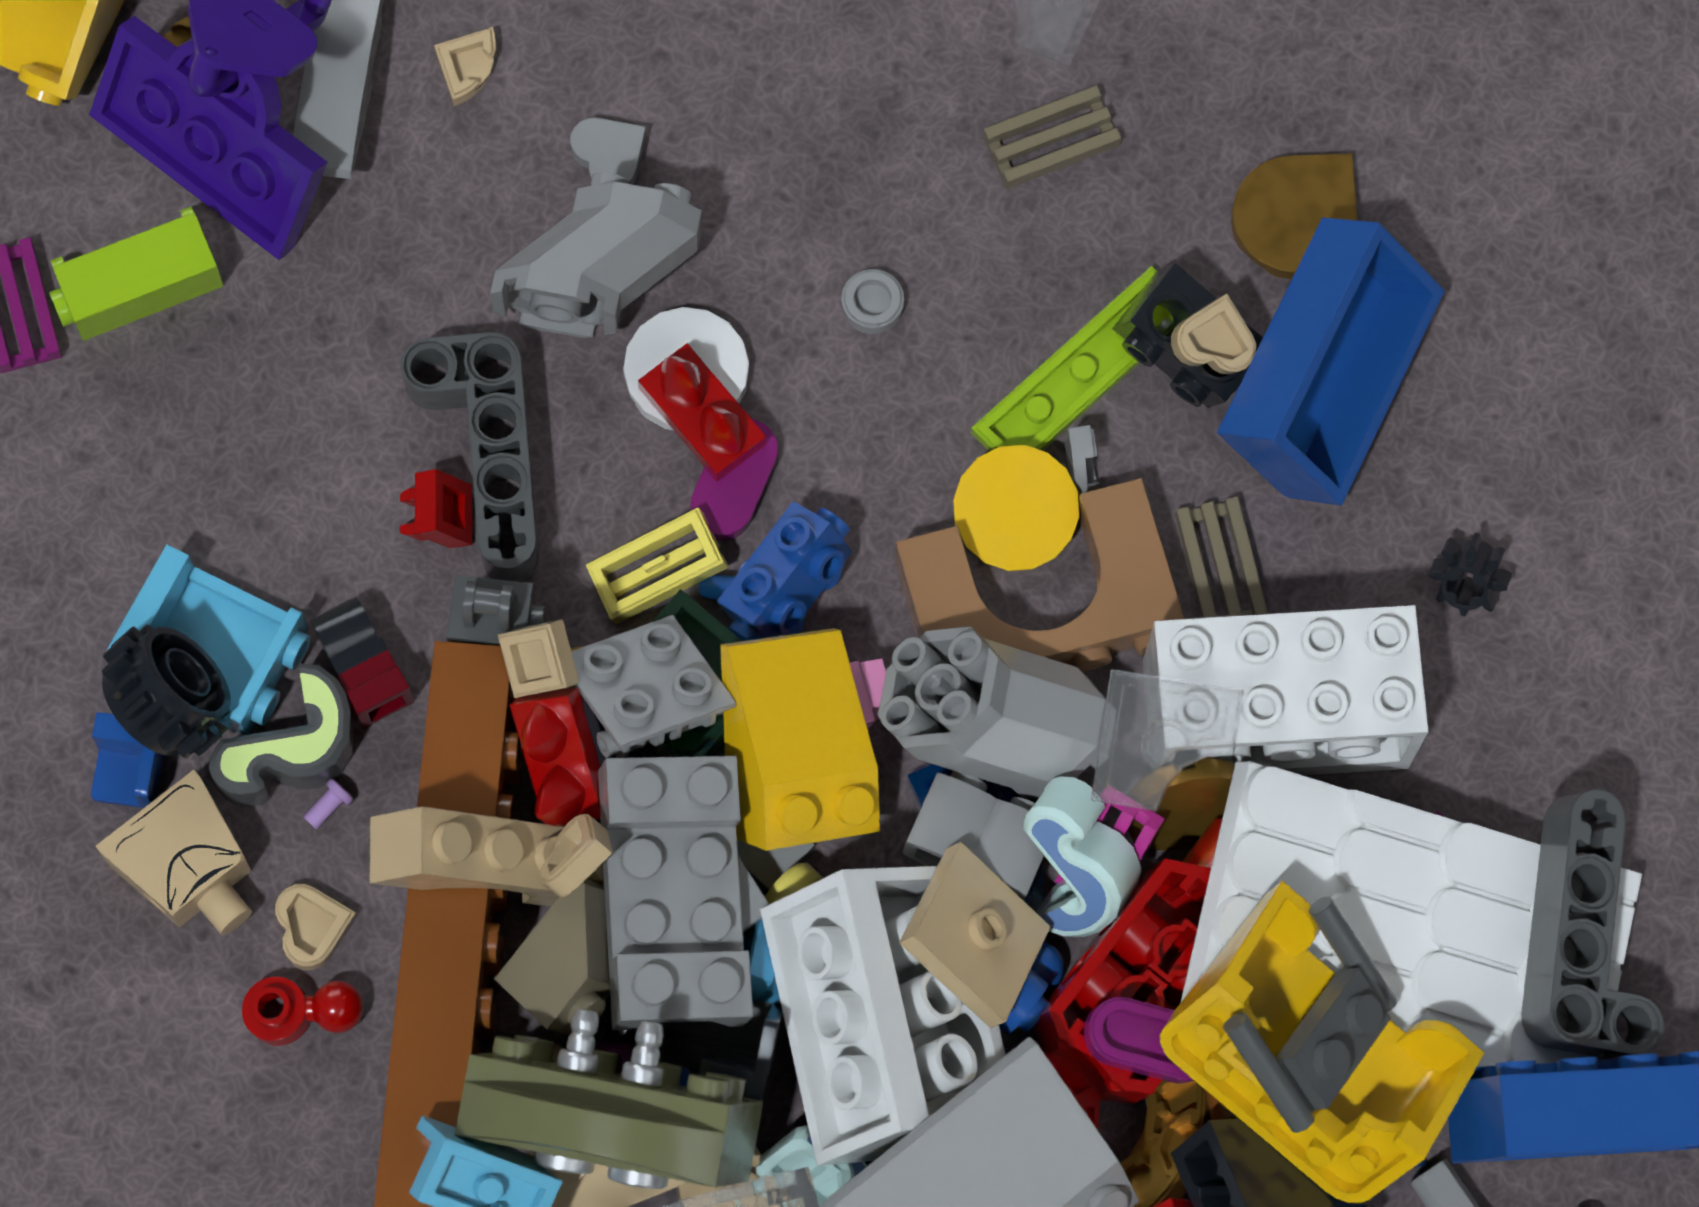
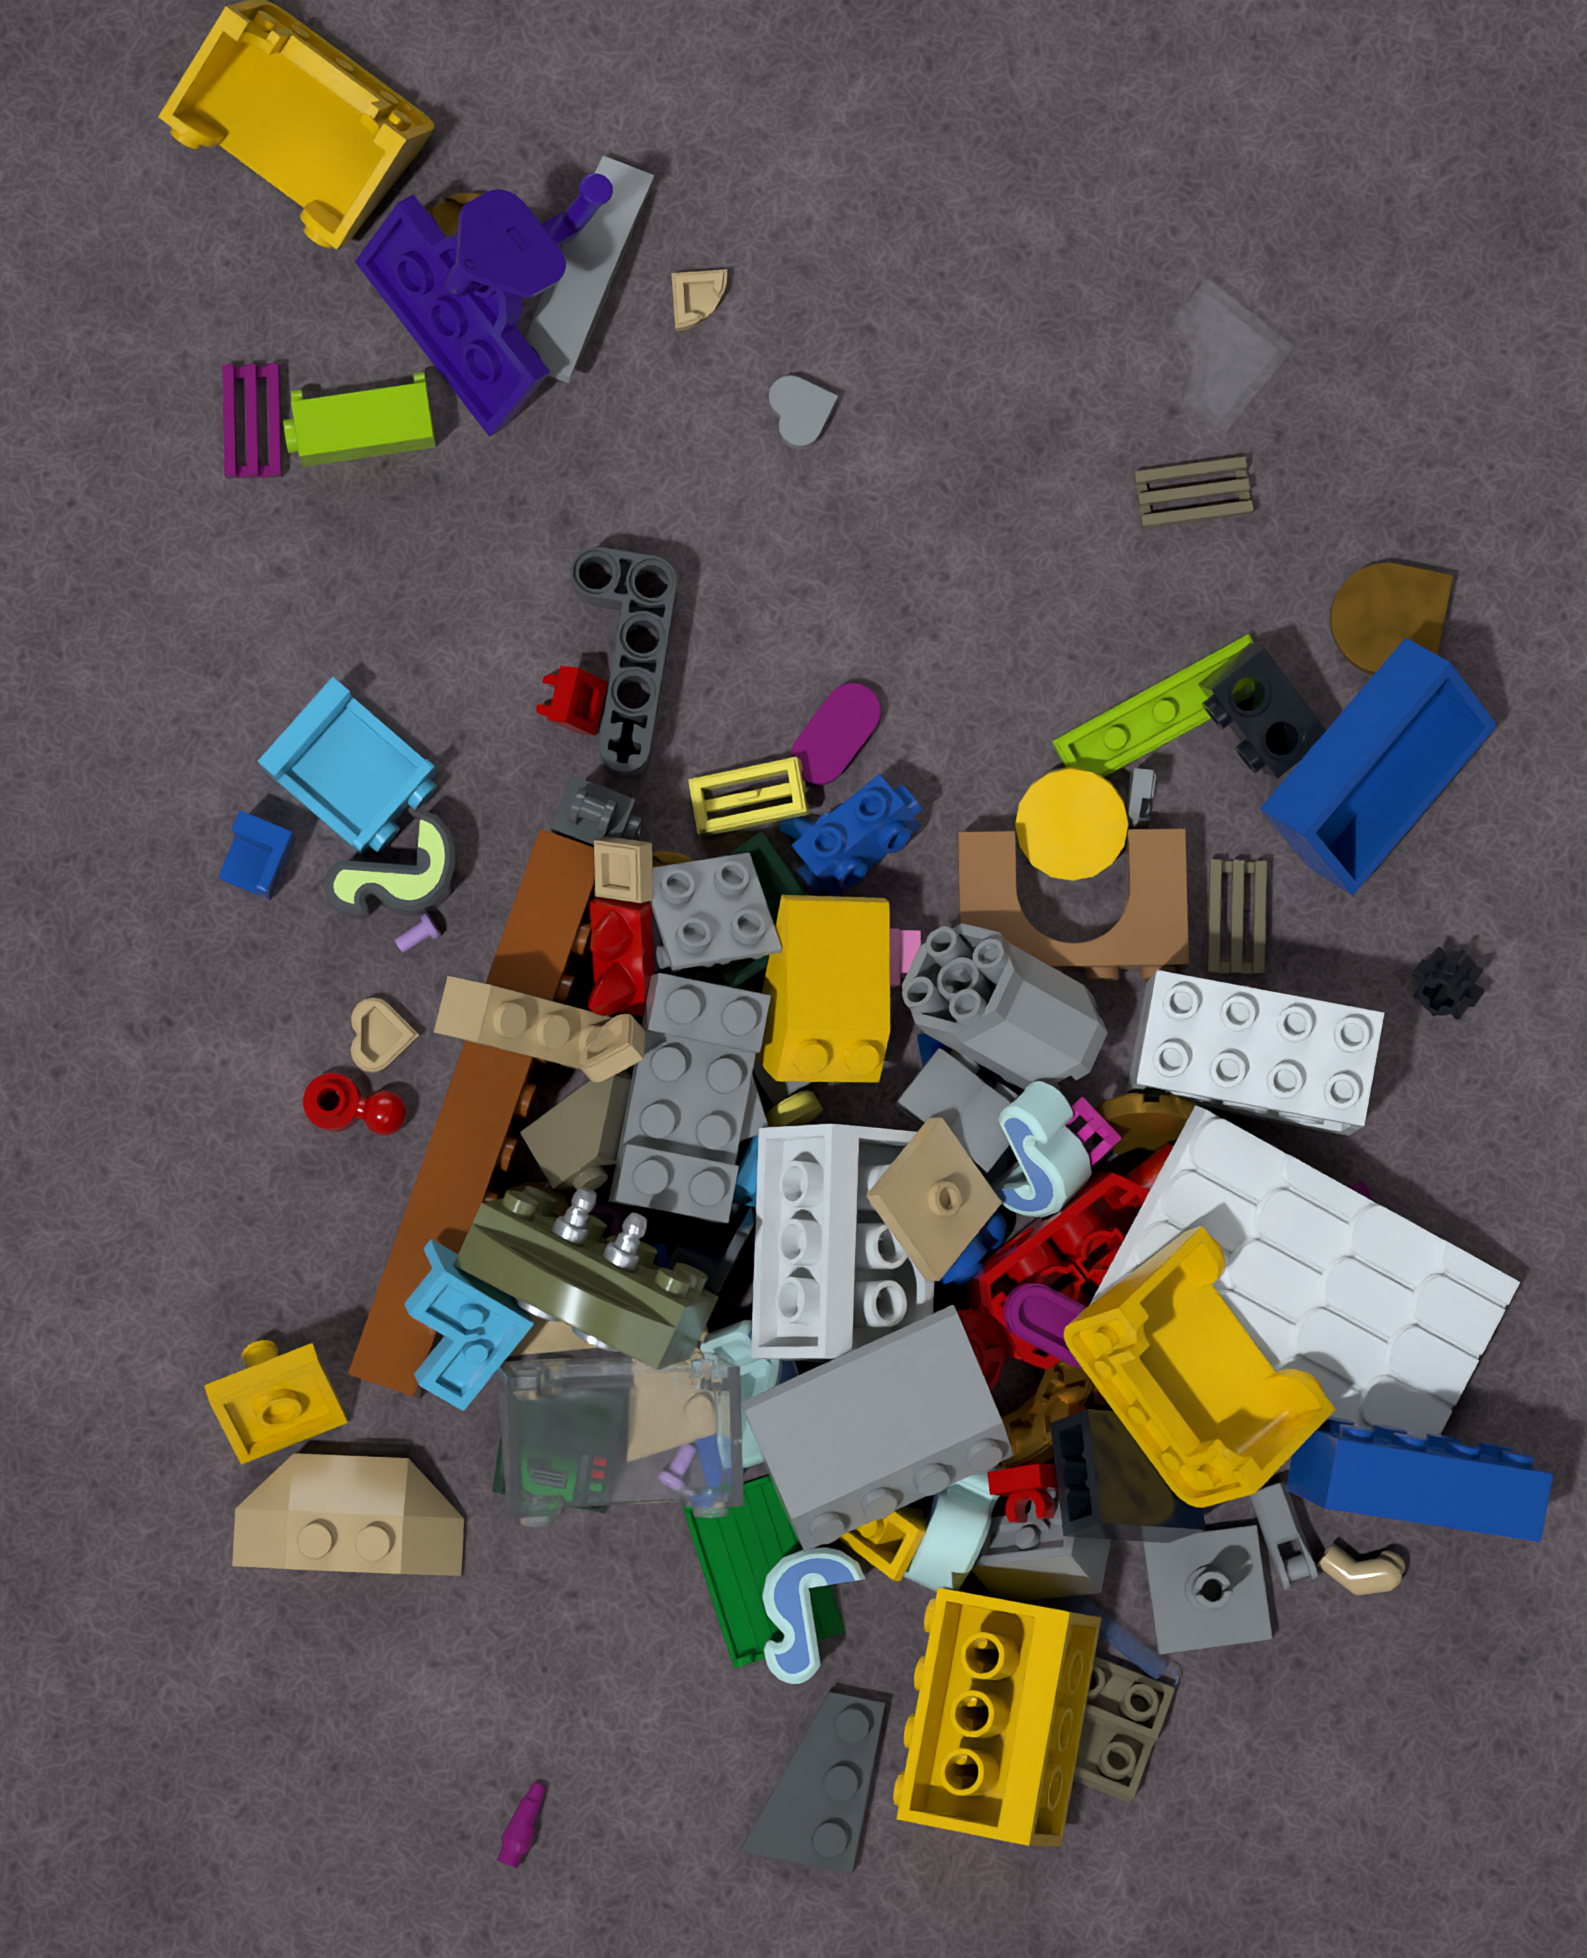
camera: 10 degrees right, 10 degrees up
(166, 691) = (302, 810): black gear -> none
(182, 857) = (284, 951): tan torso -> none
(362, 663) = (475, 818): leg -> none
(599, 256) = (767, 510): light grey brick -> none
(667, 332) = (819, 625): white tile -> none
(702, 412) = (822, 670): red tile -> none
(872, 301) = (996, 603): light grey tile -> none
(1156, 731) = (1132, 1069): clear tile -> none
(1215, 337) = (1282, 722): tan tile -> none
(1330, 1036) = (1206, 1367): dark grey plate -> none
(1590, 927) = (1459, 1320): dark grey beam -> none

